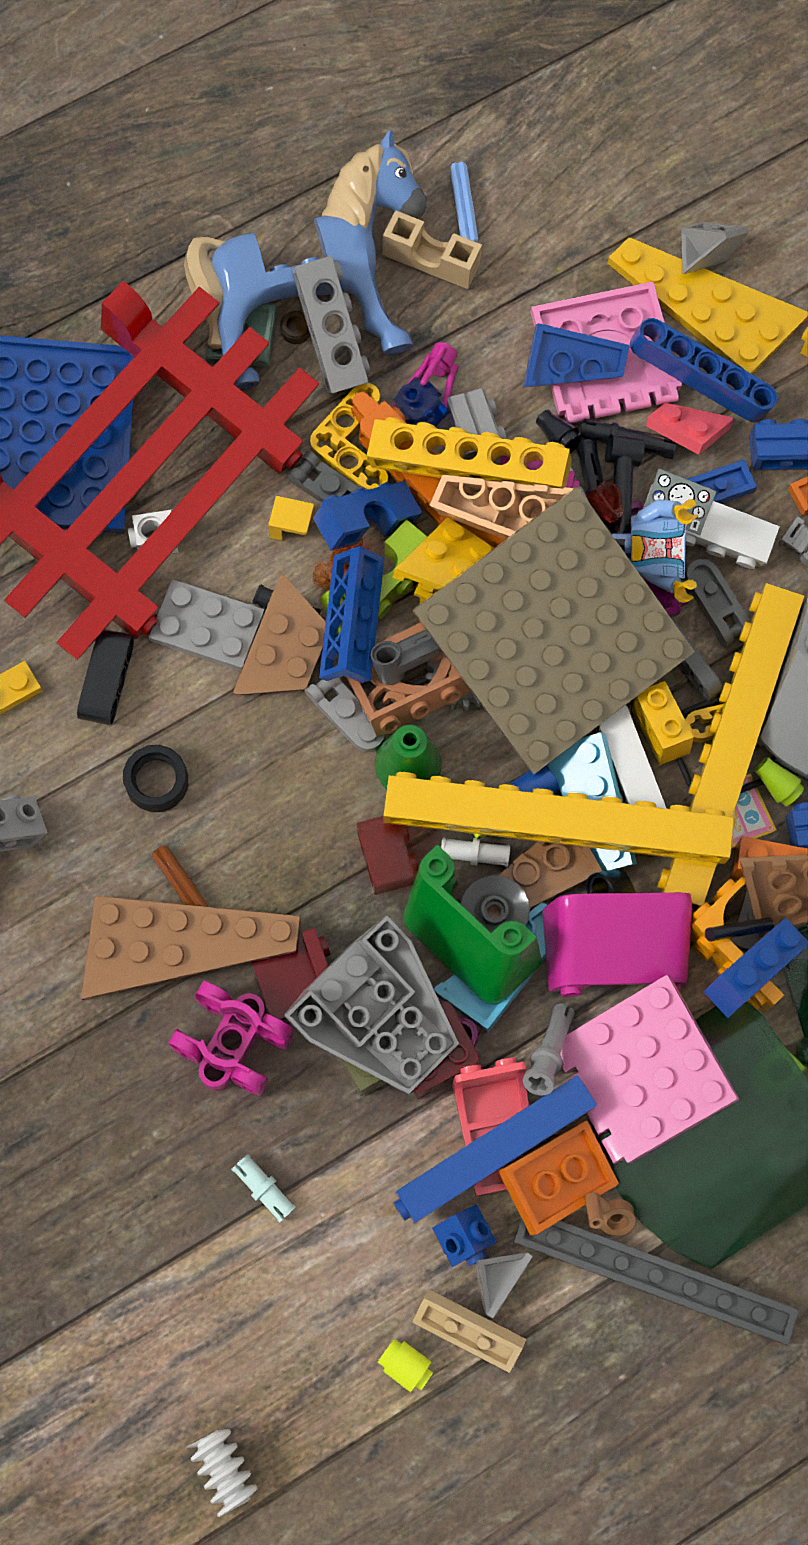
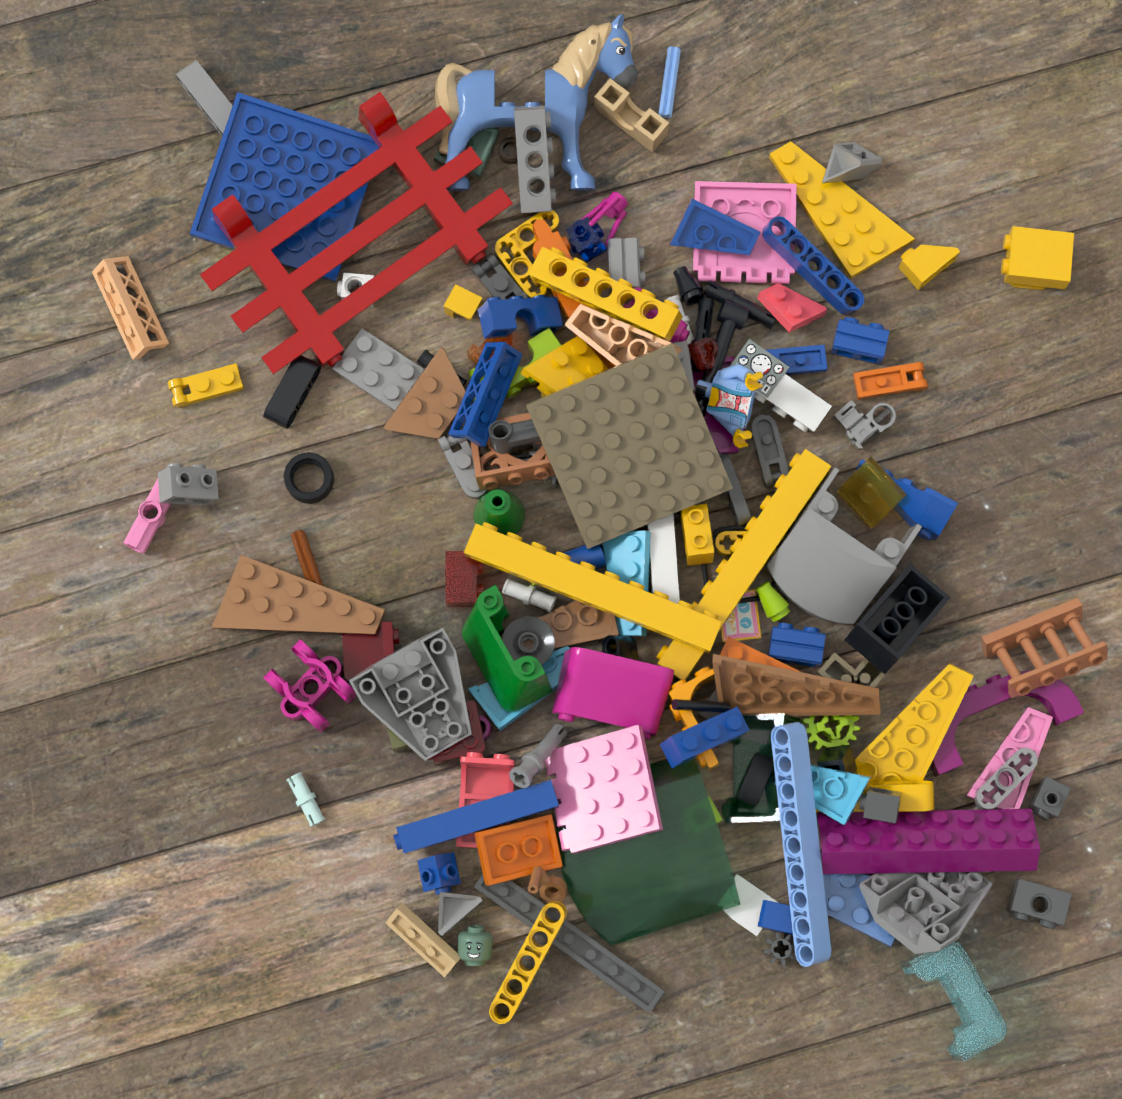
camera: 20 degrees right, 5 degrees up
(223, 1471) = (222, 987): white piece -> none
(406, 1365) = (371, 951): neon yellow brick -> none
(538, 1319) = (475, 945): none -> sand green head
(617, 1339) = (519, 971): none -> yellow beam

